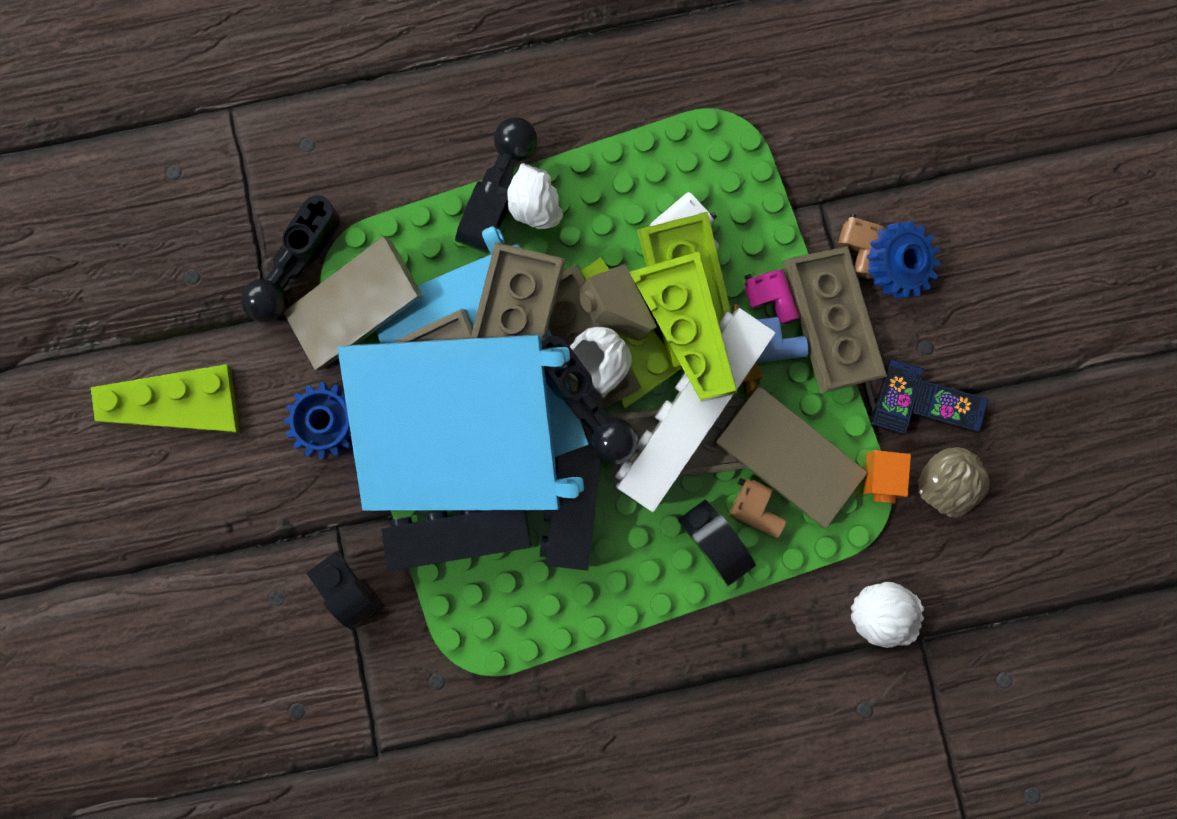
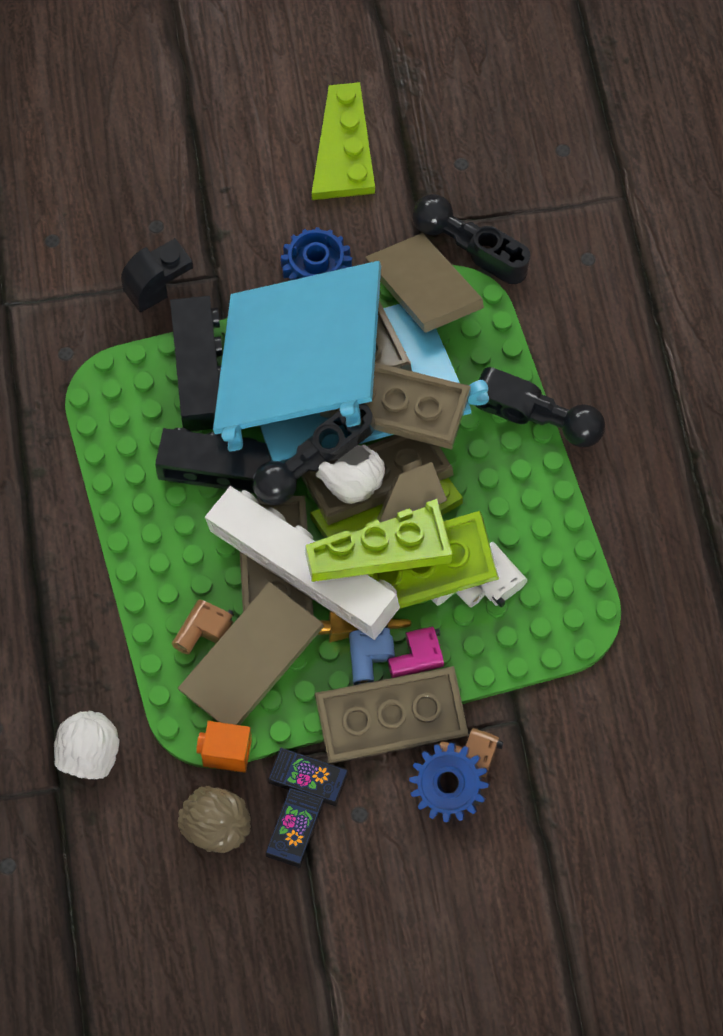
camera: 90 degrees right, 20 degrees down
(533, 198) = (522, 435): white hair -> none
(717, 542) = (168, 581): black brick -> none

